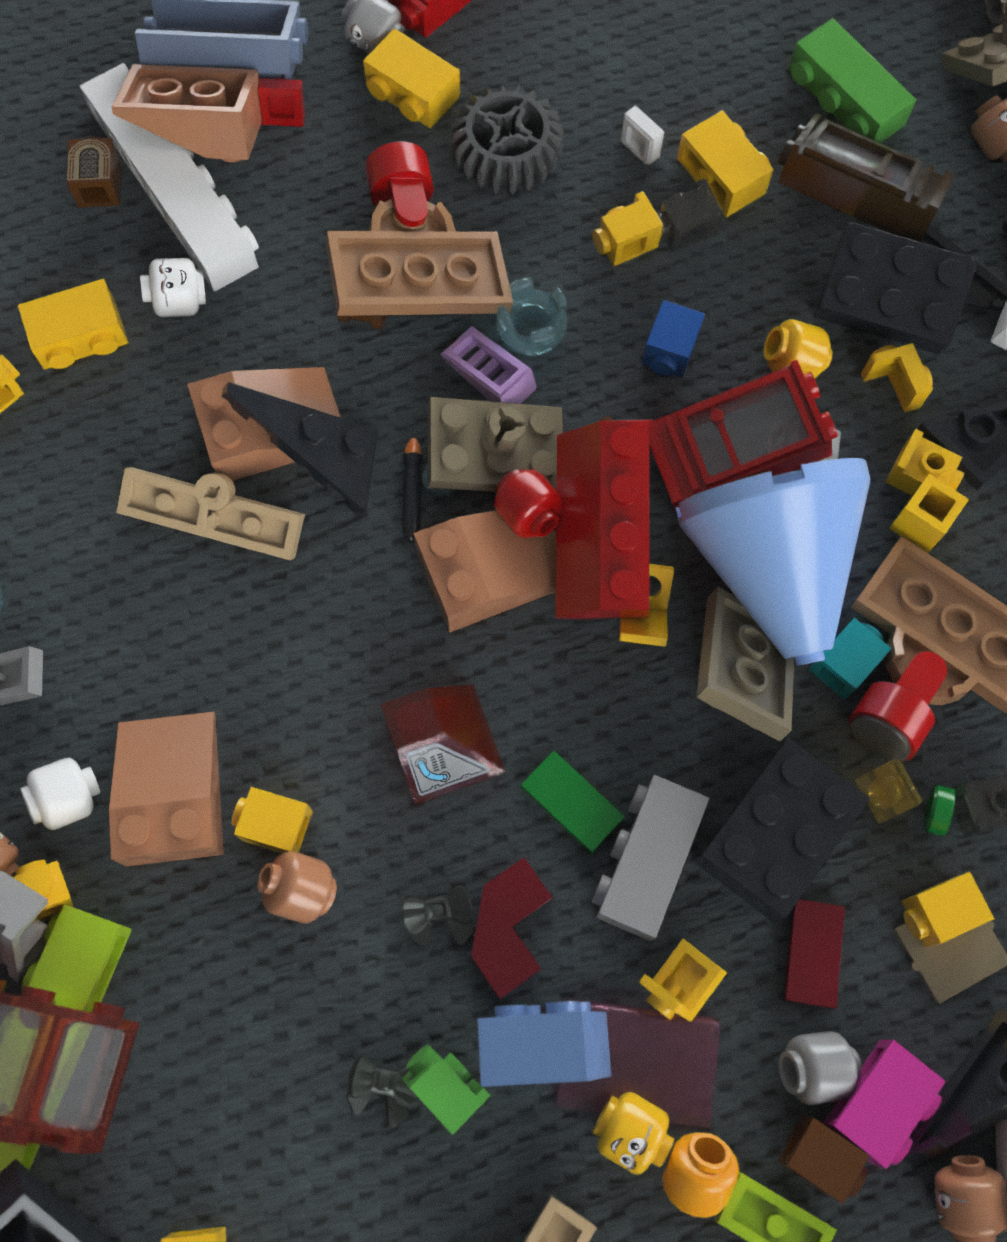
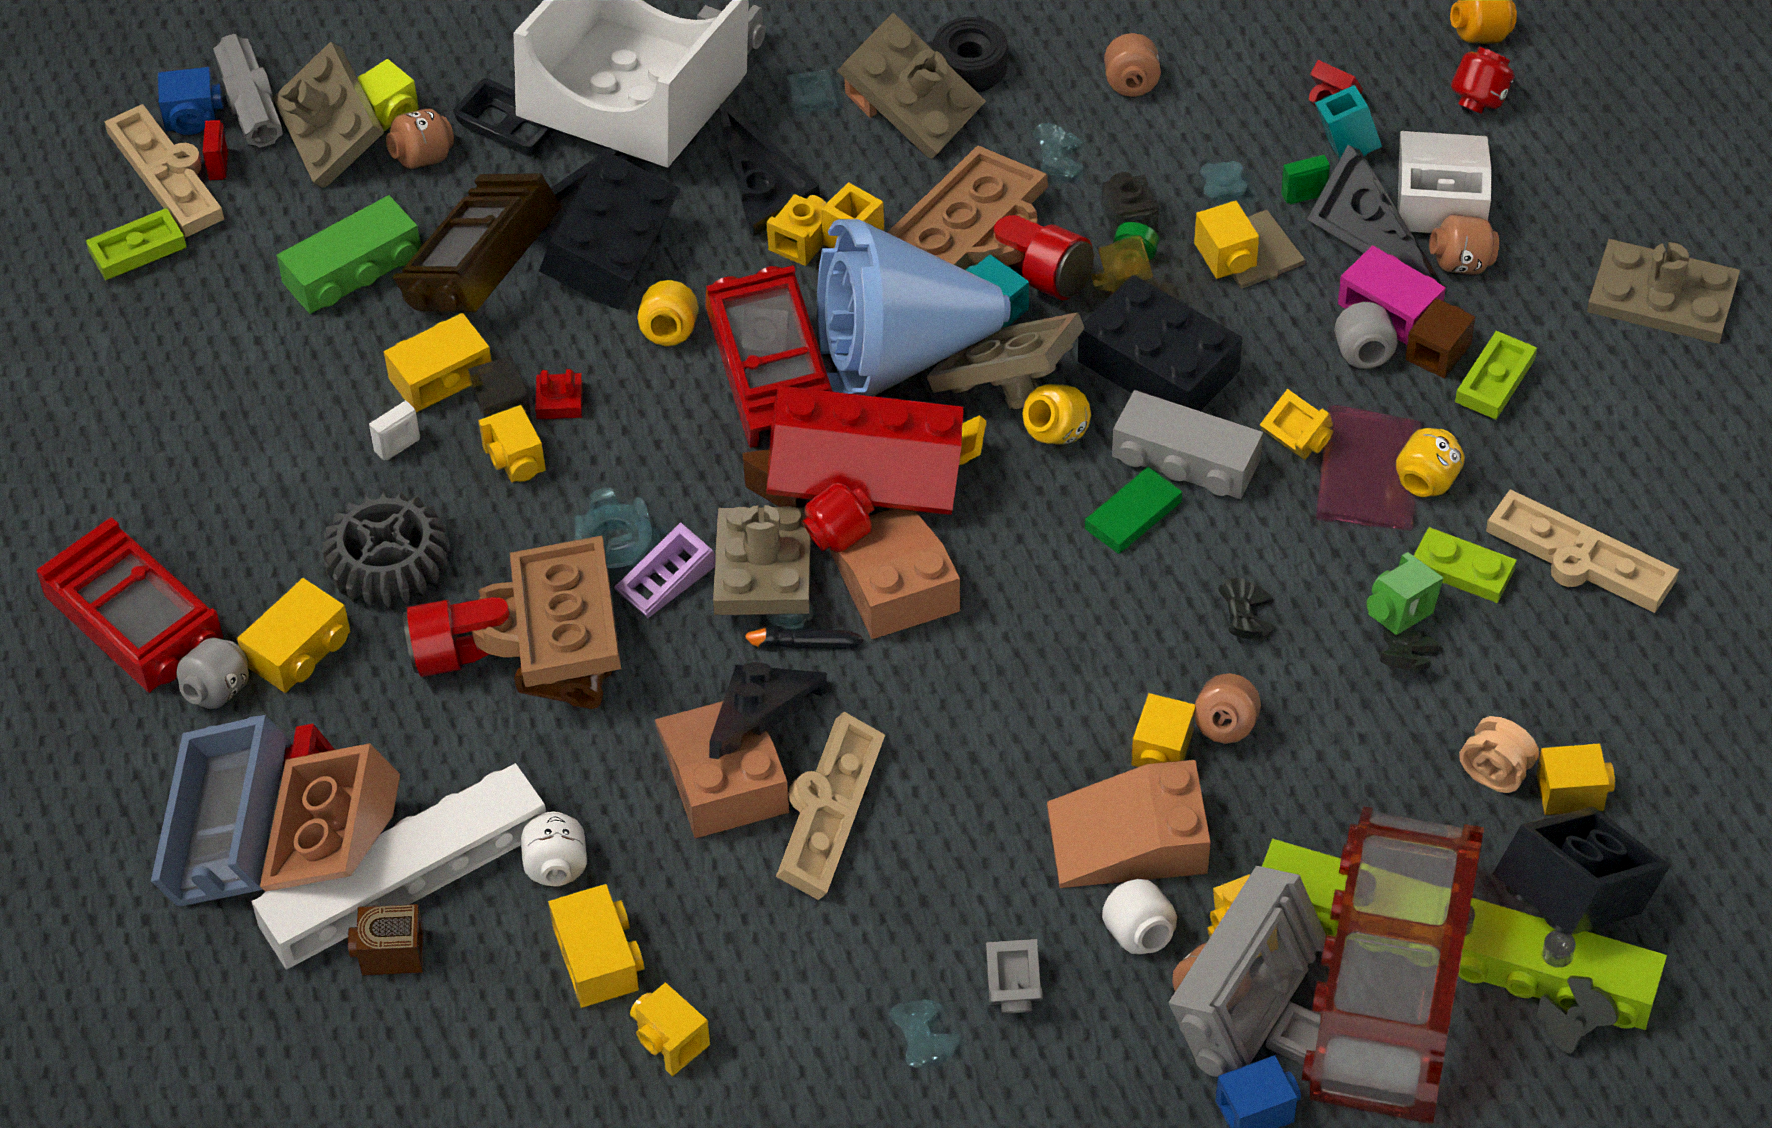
camera: 85 degrees left, 20 degrees down
(223, 1183) = (1499, 754): none -> light nougat wheel
(442, 740) = (1077, 612): clear red slope -> none
(496, 945) = (1275, 566): dark red tile -> none
(502, 1164) = (1466, 564): none -> lime plate
(540, 1048) = (1364, 504): medium blue brick -> none
(672, 339) = (648, 412): blue brick -> none
(681, 719) = (1056, 414): none -> yellow head
(698, 268) = (559, 395): none -> red tile
(700, 1174) = (1462, 412): light orange head -> none
(814, 954) = (1272, 340): dark red tile -> none
(907, 374) = (699, 234): yellow bracket -> none

